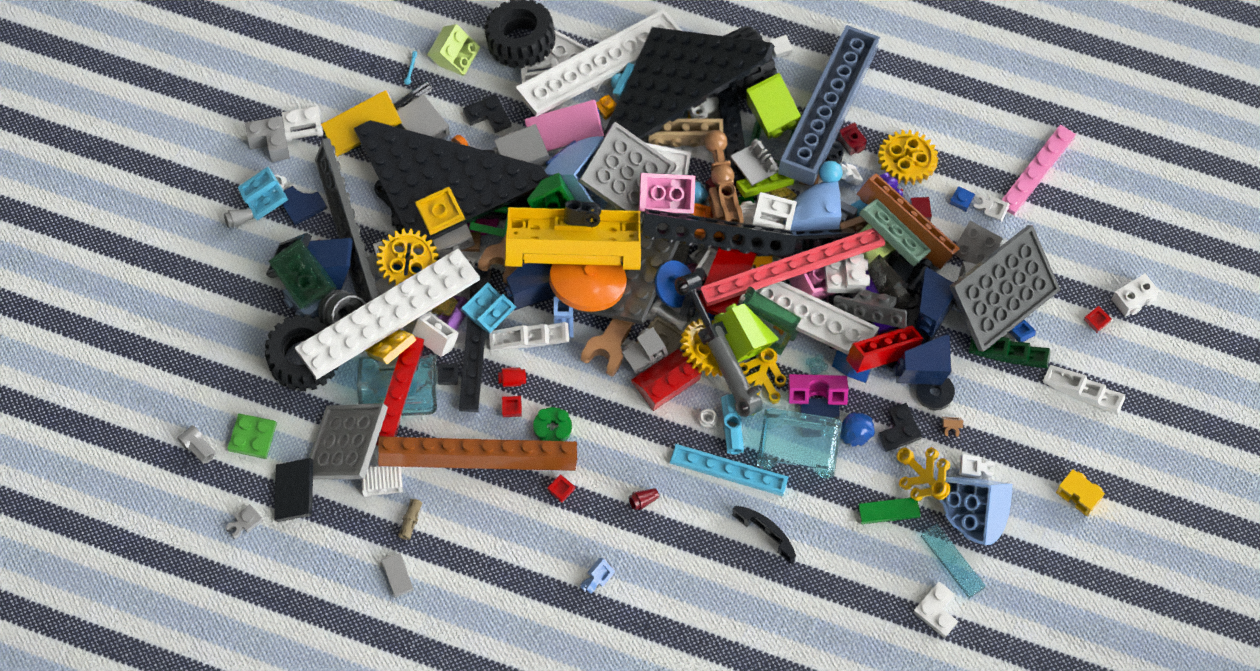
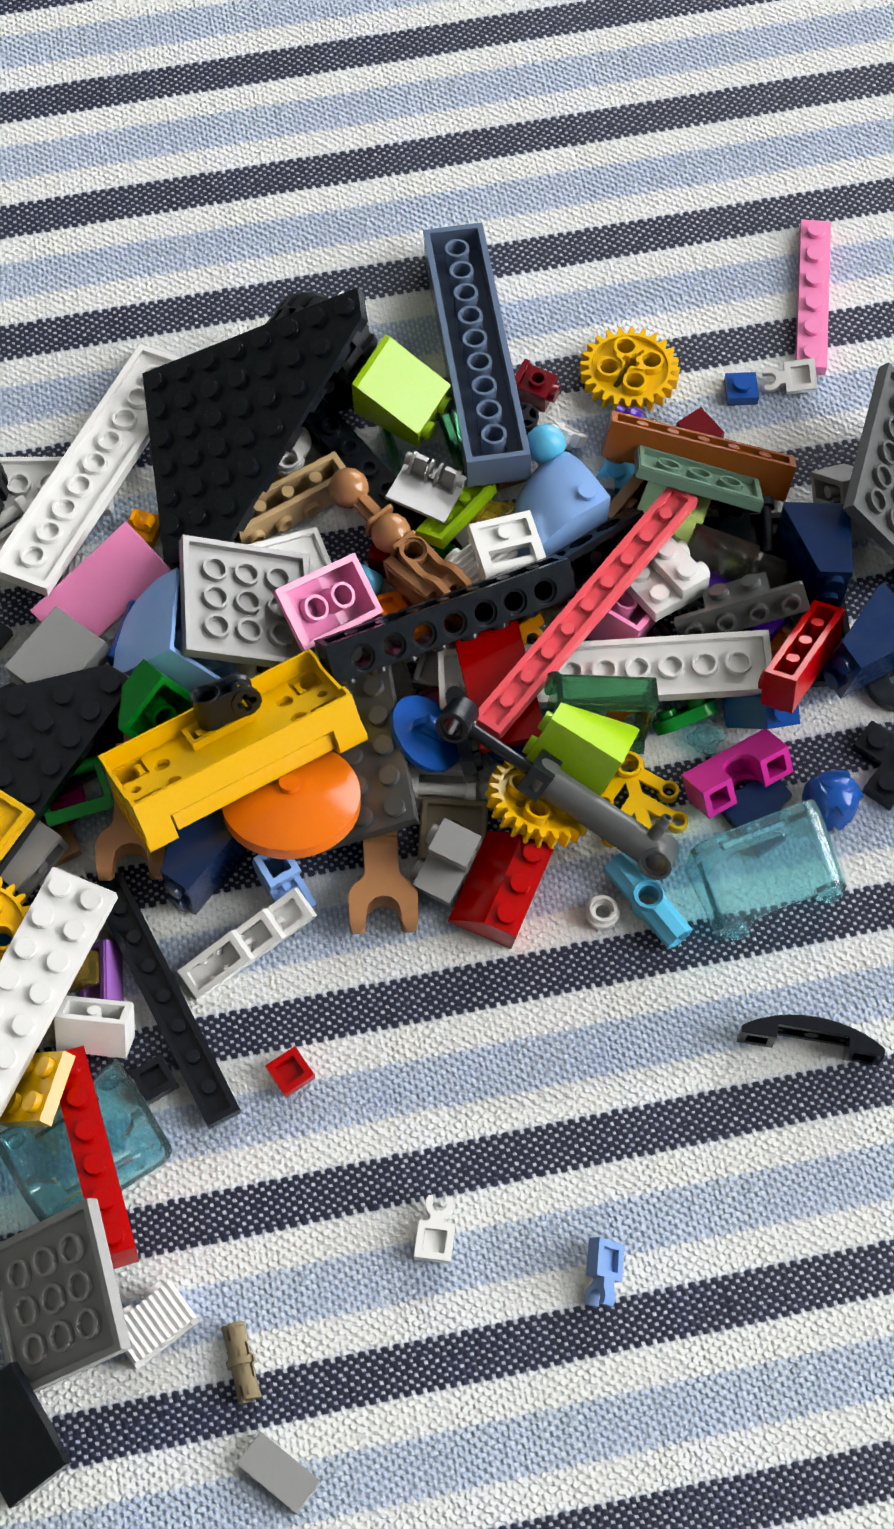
camera: 30 degrees left, 0 degrees up
(477, 453) = (283, 1187): dark orange brick -> none
(488, 308) = (155, 935): medium azure slope -> none
(512, 377) = (261, 1023): red brick -> none
(531, 517) = (435, 1236): none -> white plate
(548, 416) = (378, 1045): green plate -> none
(561, 488) = (453, 1159): red plate -> none
(620, 79) = (141, 478): medium azure tile -> none
(643, 498) = (590, 1098): dark red cone -> none
(729, 470) = (686, 973): medium azure tile -> none
(803, 345) = (672, 720): none -> green plate
(977, 243) = (811, 437): light grey hinge -> none

